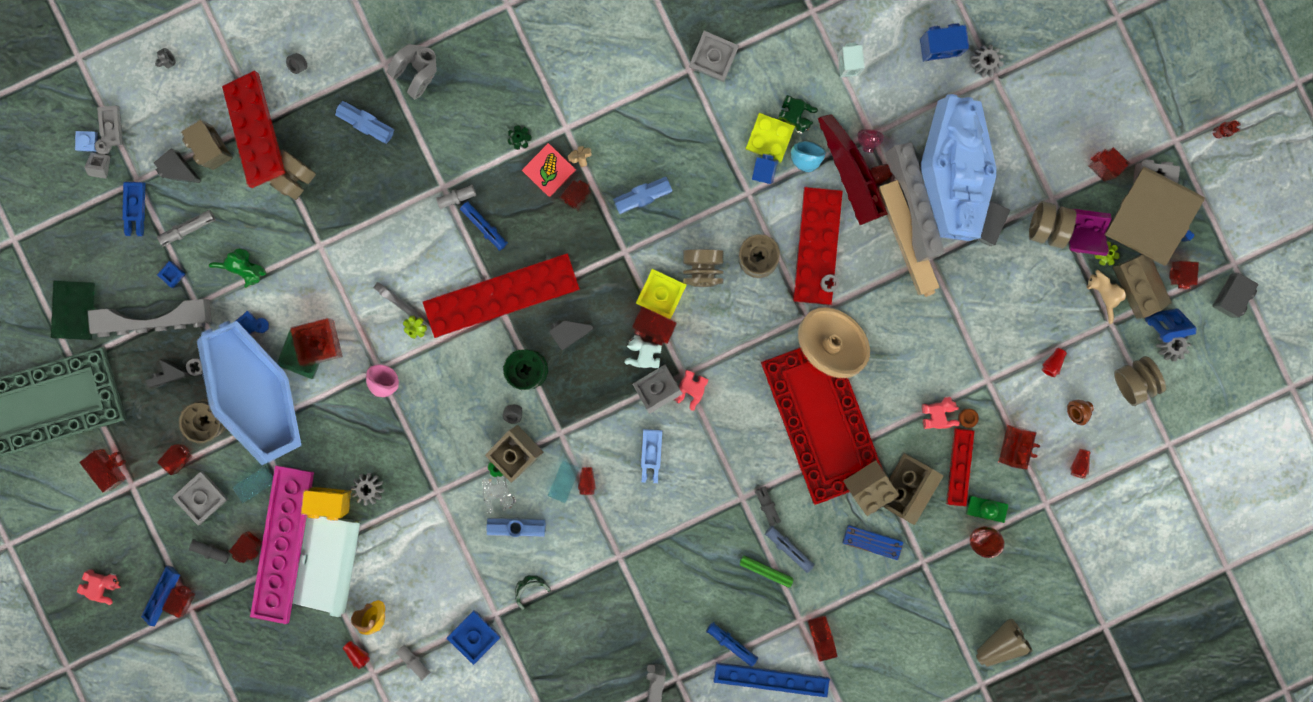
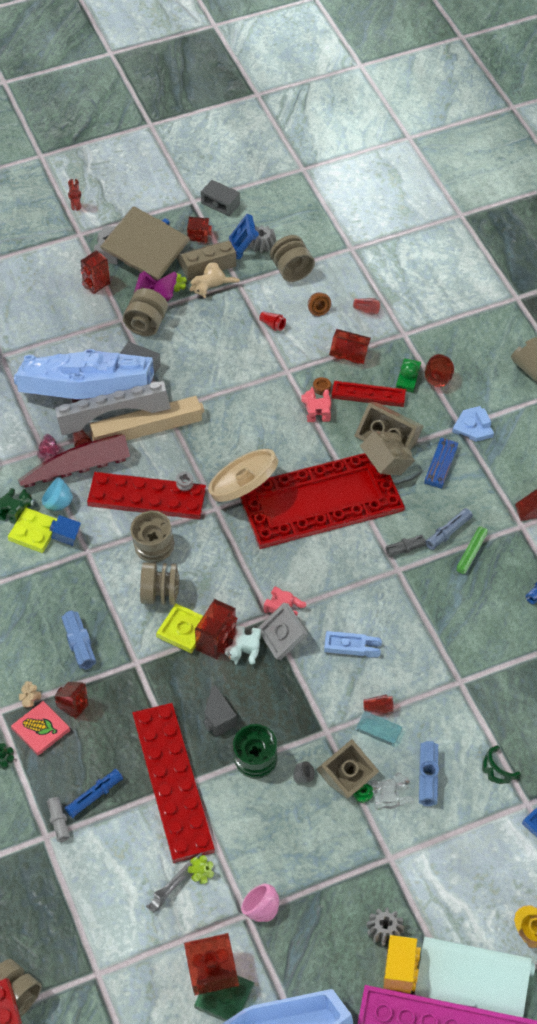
camera: 90 degrees left, 35 degrees down
(924, 576) = (474, 424): none -> light blue plate

